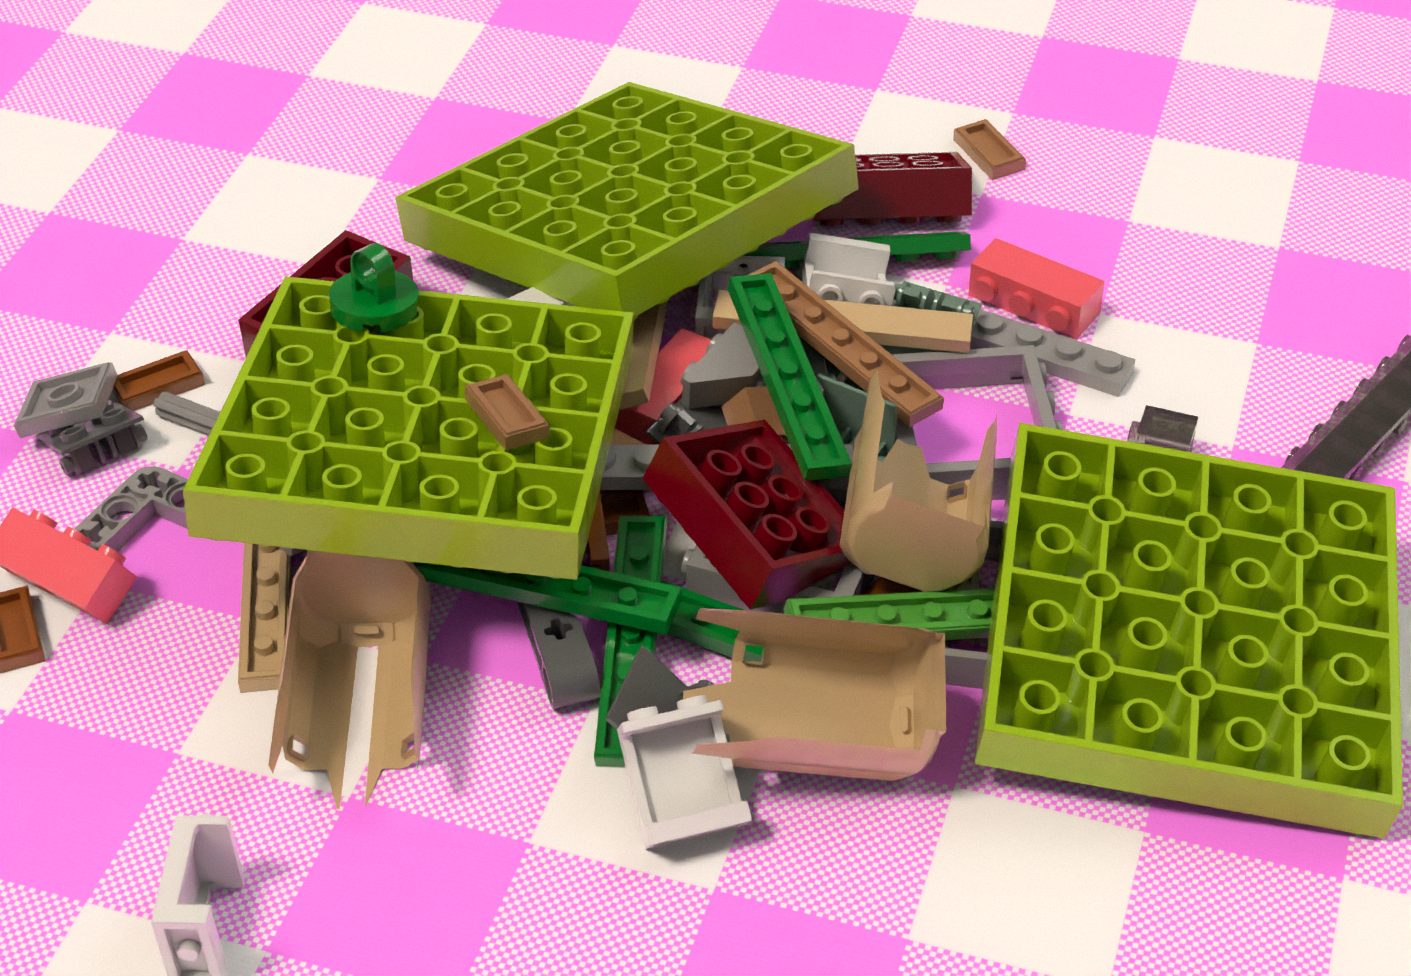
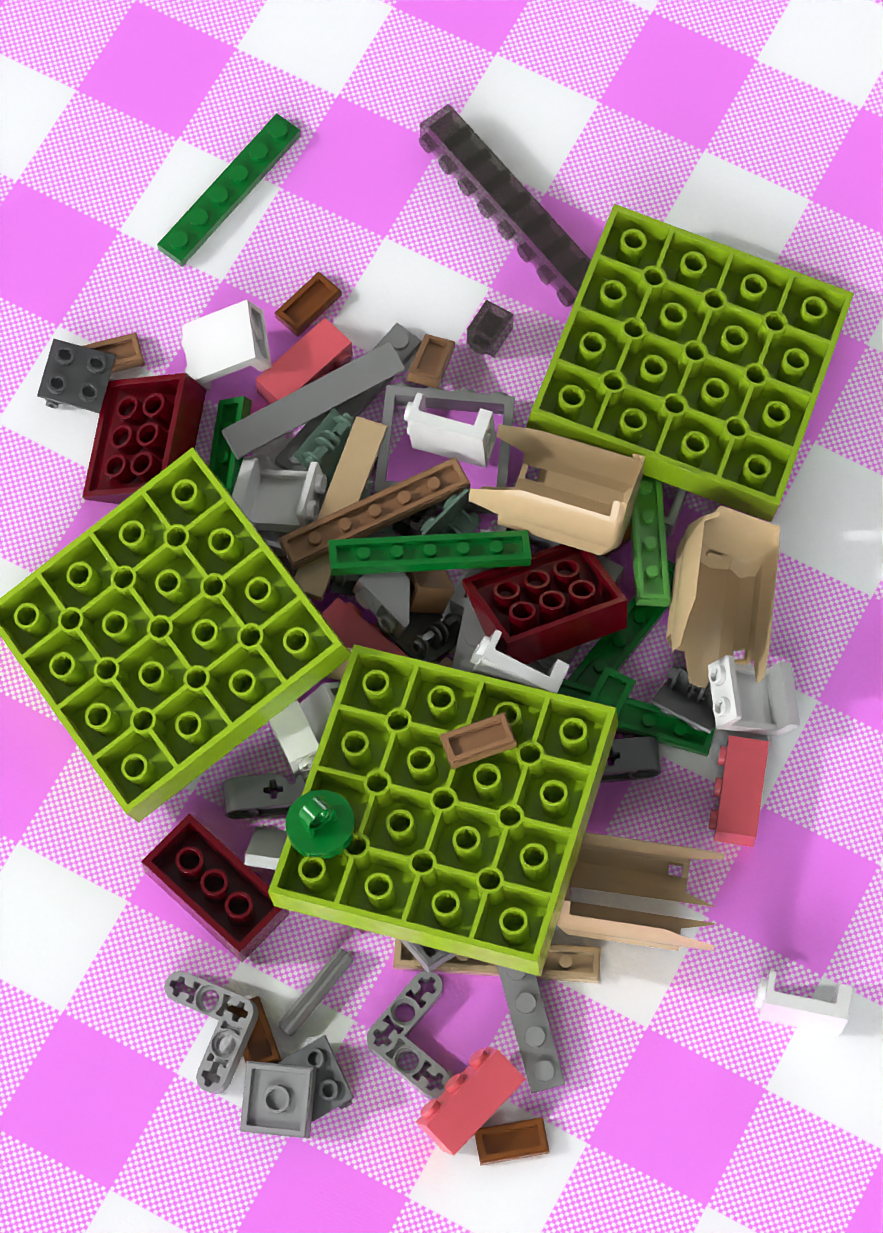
camera: 80 degrees left, 25 degrees up
(164, 350) = (226, 1026): none -> light grey beam
(190, 609) = (531, 1029): none -> light grey plate
(538, 797) = (739, 791): none -> coral brick
(622, 492) = (500, 666): none -> white panel
(947, 118) = (75, 376): none -> dark grey hinge
(976, 379) = (450, 437): none -> white panel
(985, 283) = (313, 400): none -> light grey tile
(1031, 208) = (226, 343): none -> white panel
(1091, 391) = (431, 361): none -> medium nougat tile
(1133, 288) = (308, 304): none -> dark orange tile
(1253, 204) = (229, 190): none -> green plate

